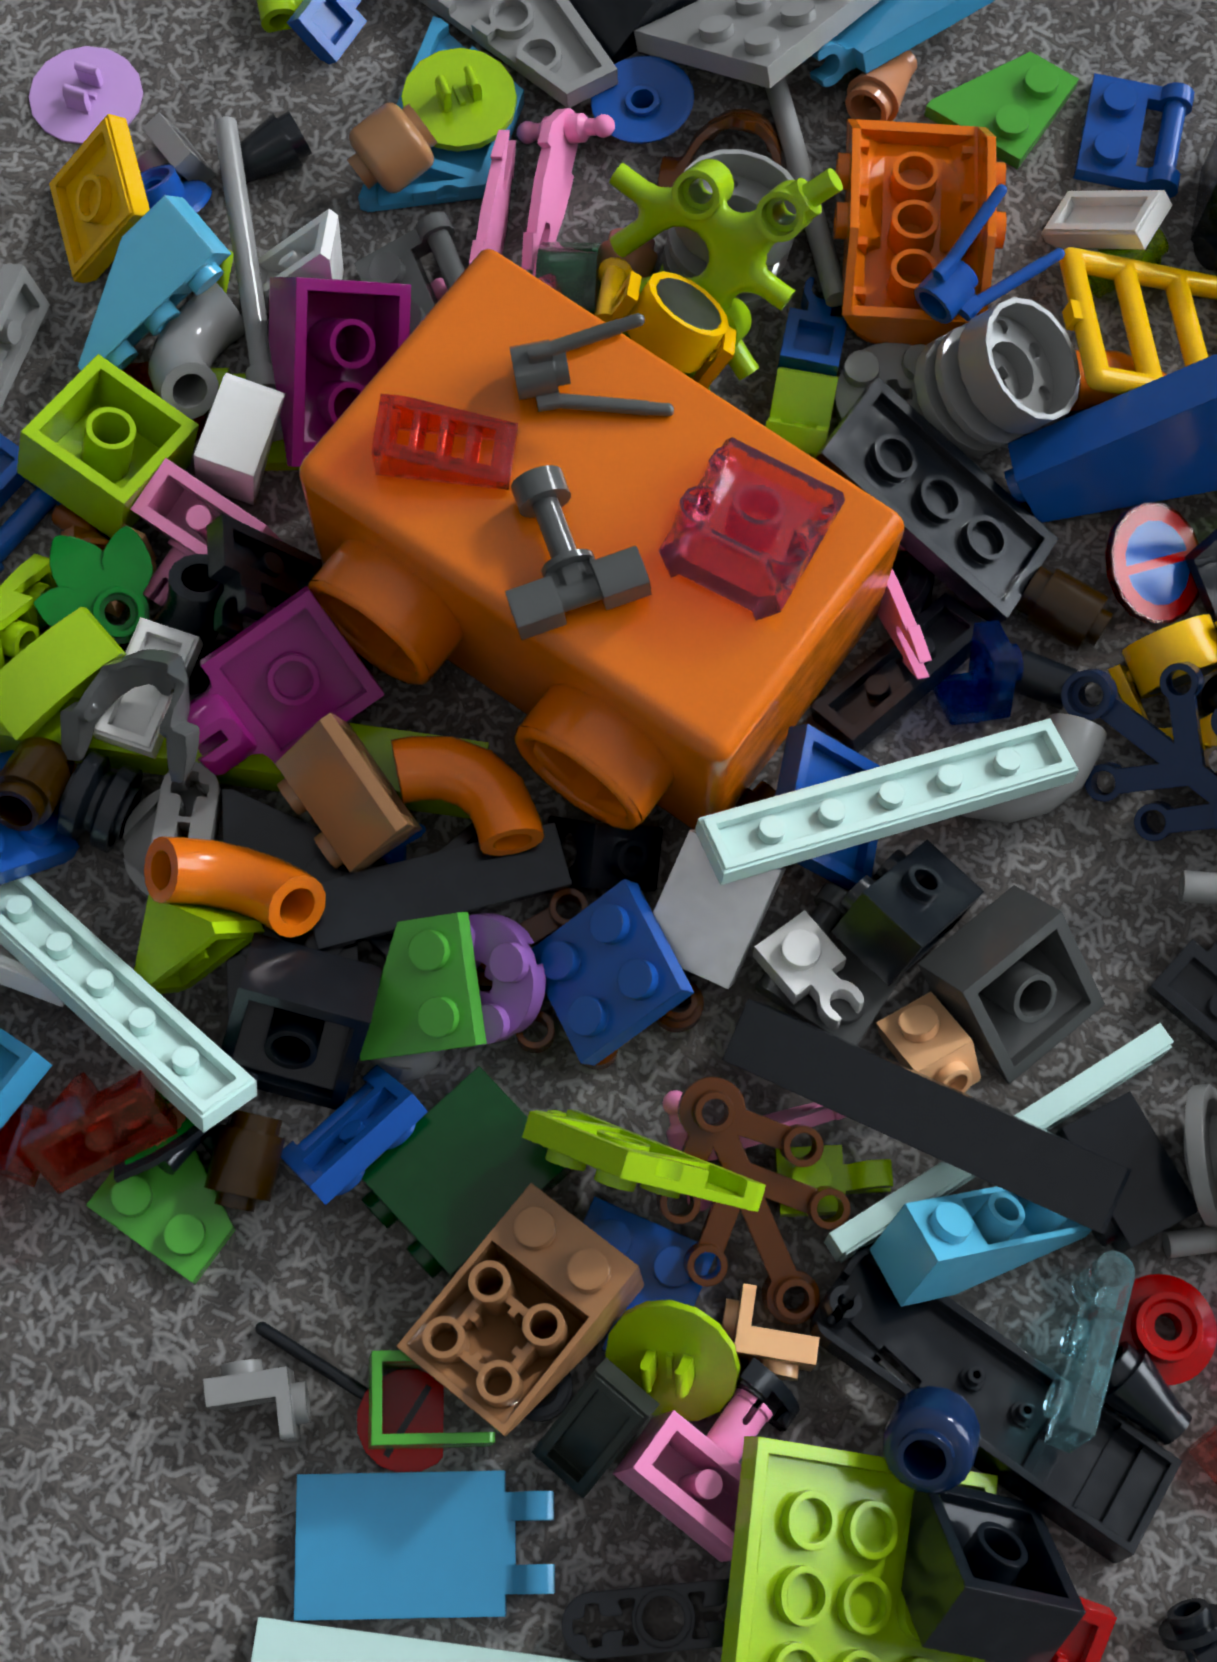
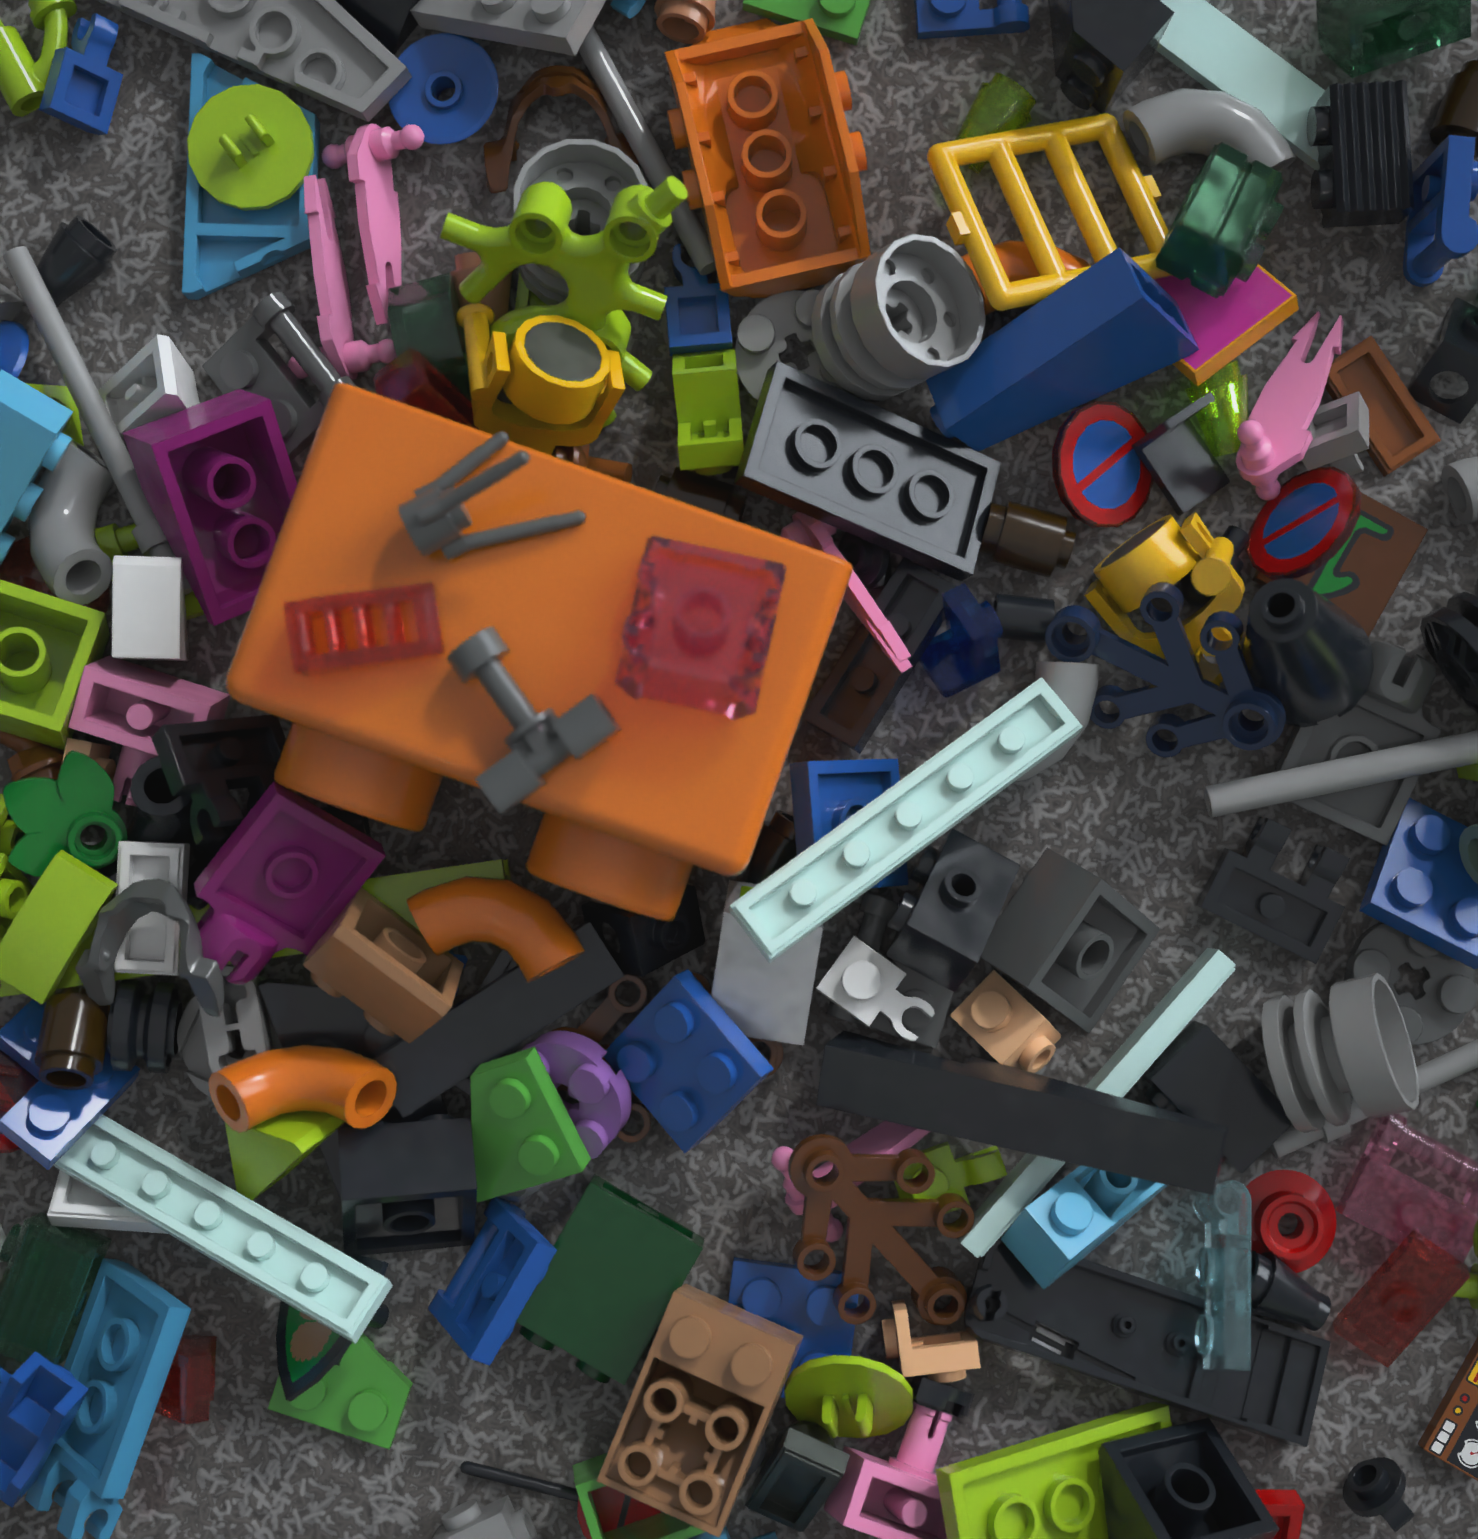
camera: 10 degrees left, 15 degrees up
(97, 1129) = (252, 1357): clear red slope -> none
(245, 1160) = (403, 1333): dark brown brick -> none
(391, 147) = (198, 235): medium nougat head -> none
(630, 1158) = (761, 1249): lime wing -> none
(931, 1439) = (1103, 1415): dark blue head -> none
(952, 282) = (824, 233): blue plant -> none
(1107, 219) = (965, 90): white tile -> none

